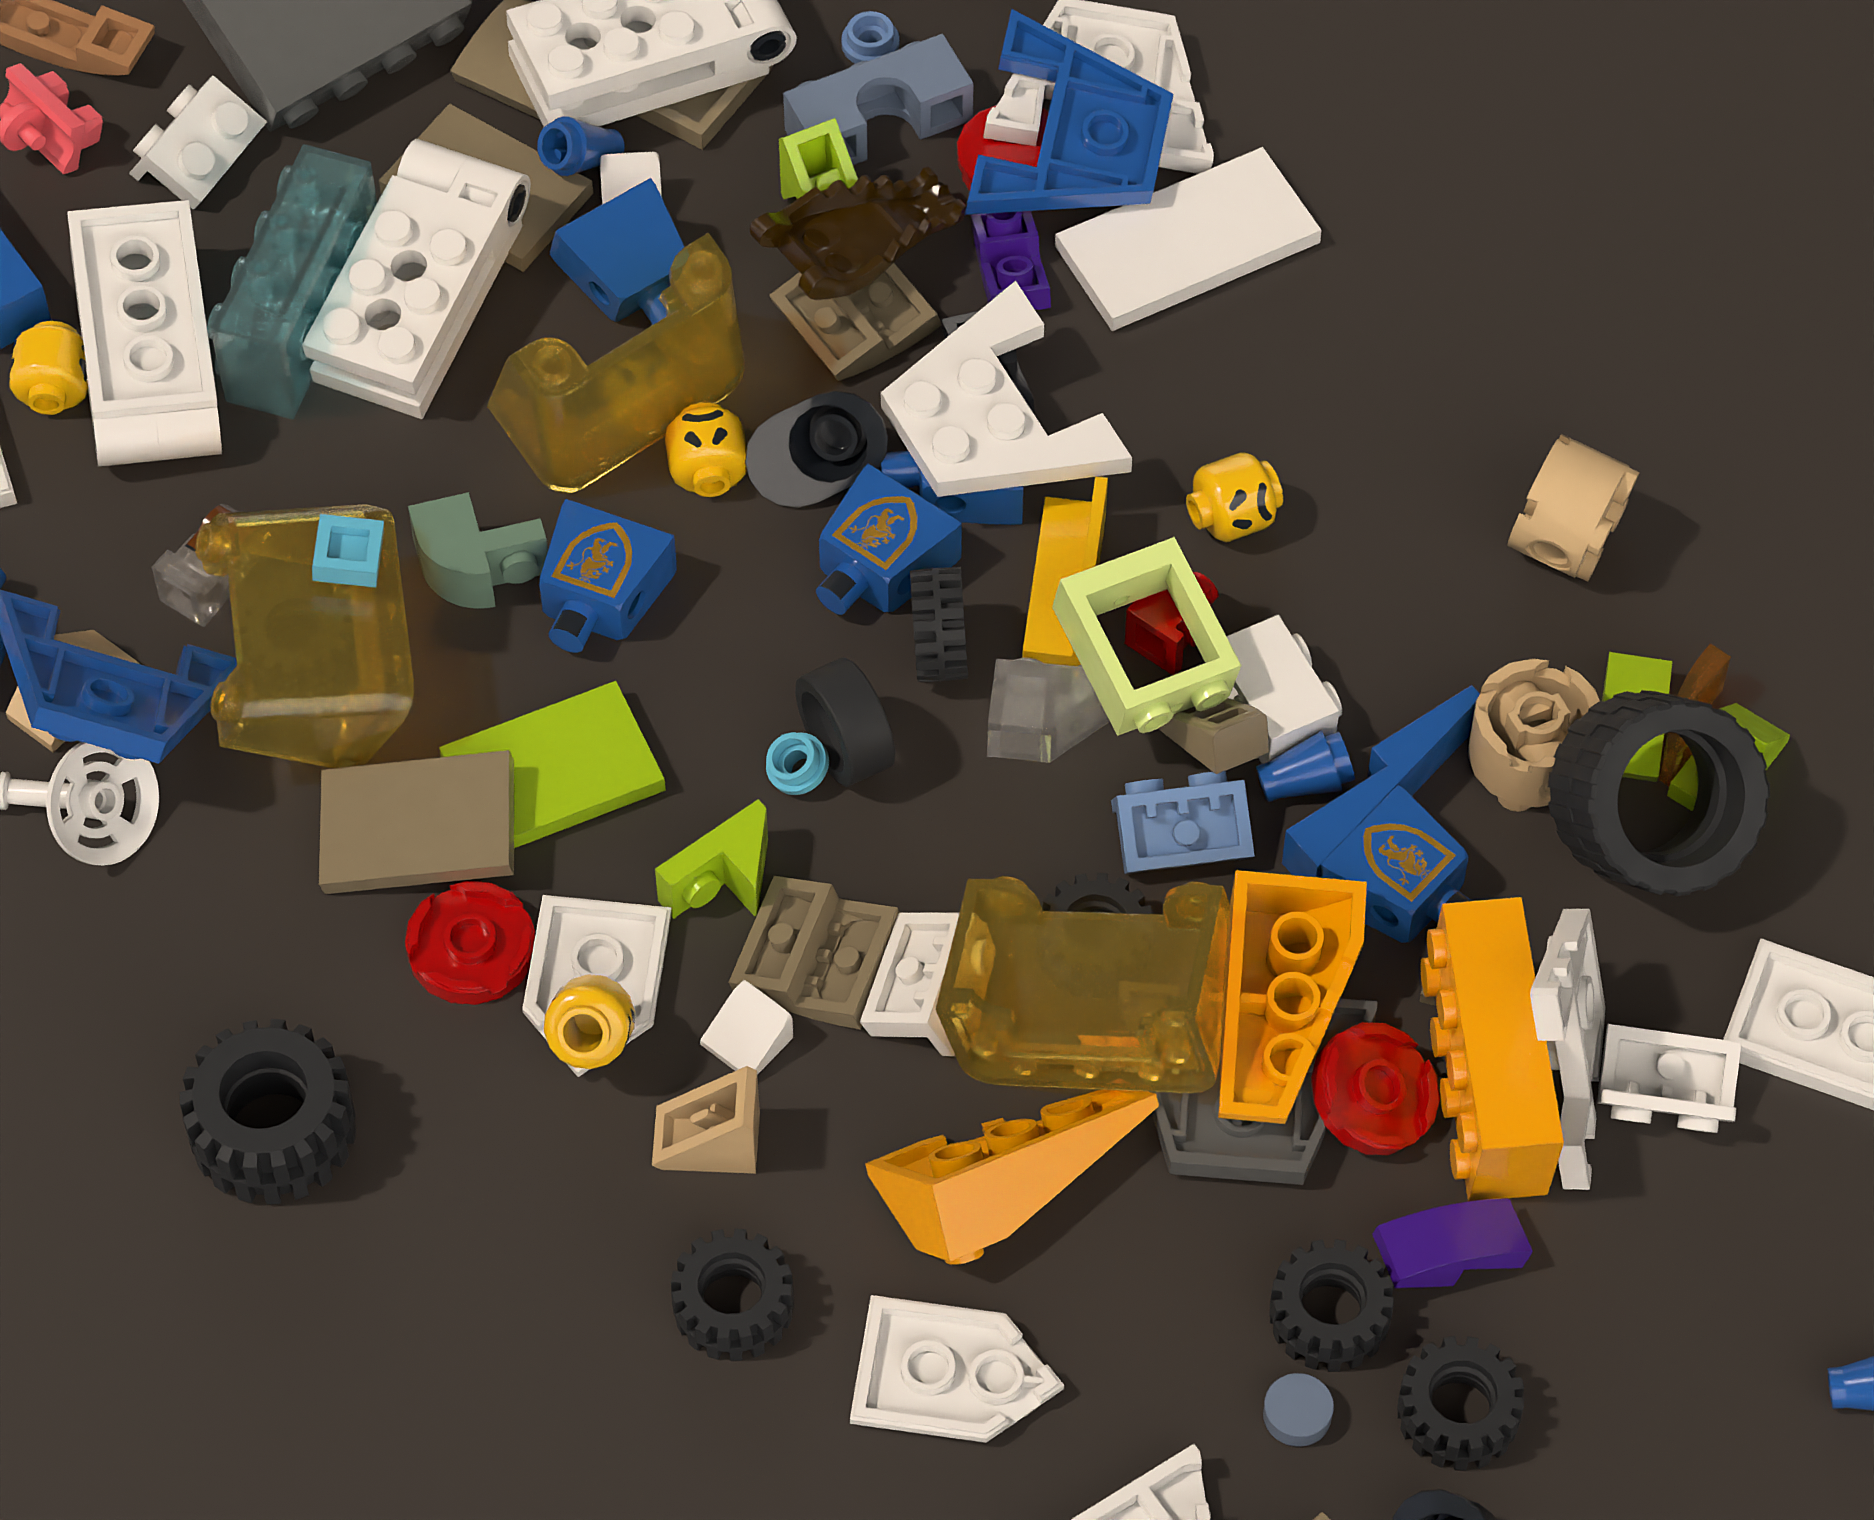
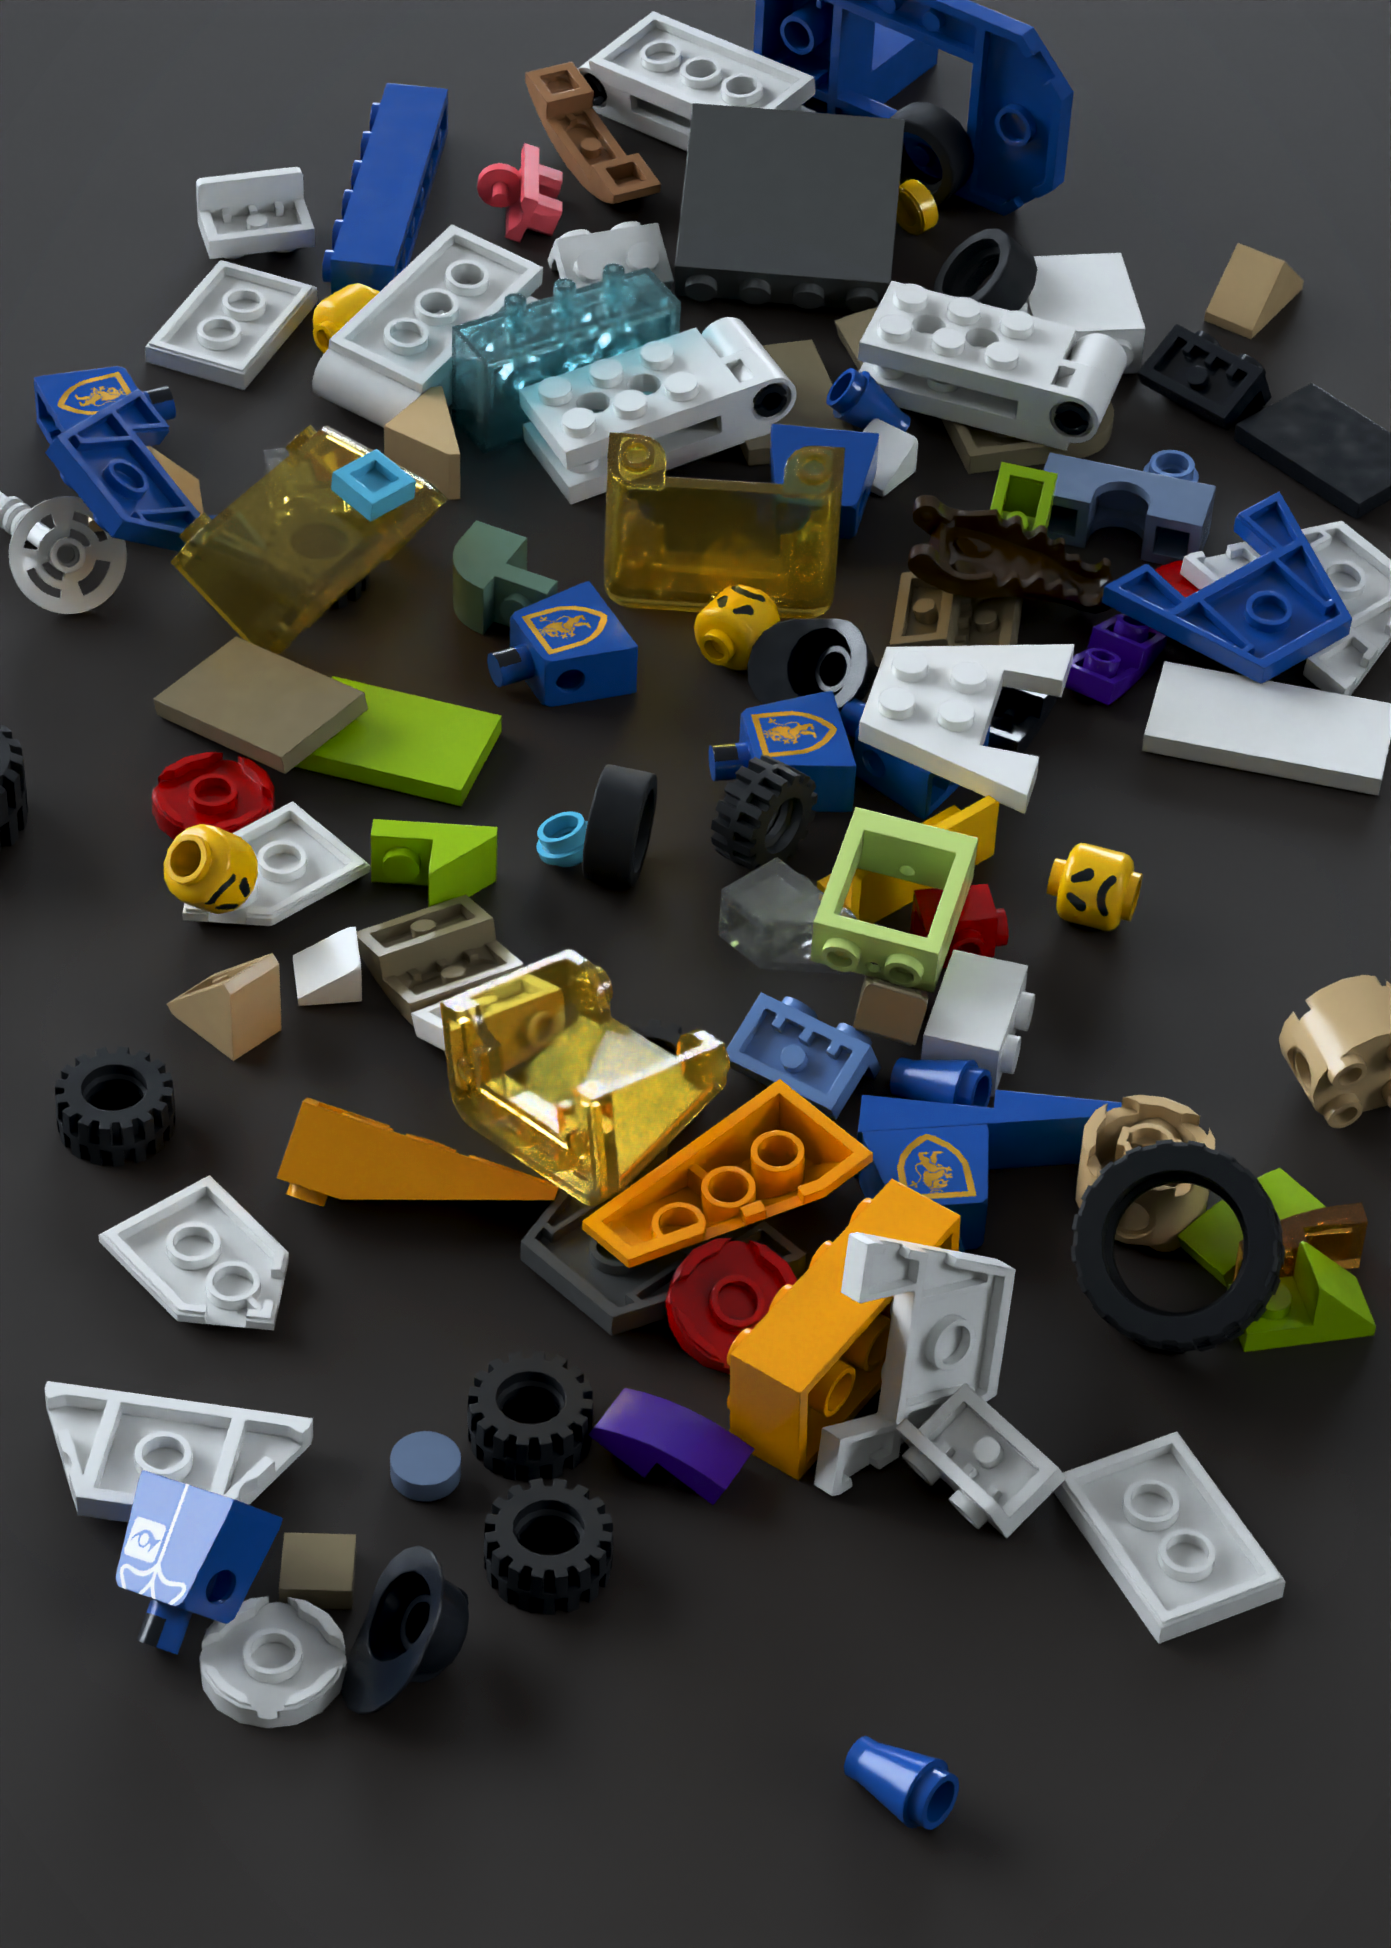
camera: 40 degrees right, 15 degrees down
(264, 453) = (425, 442): none -> tan slope

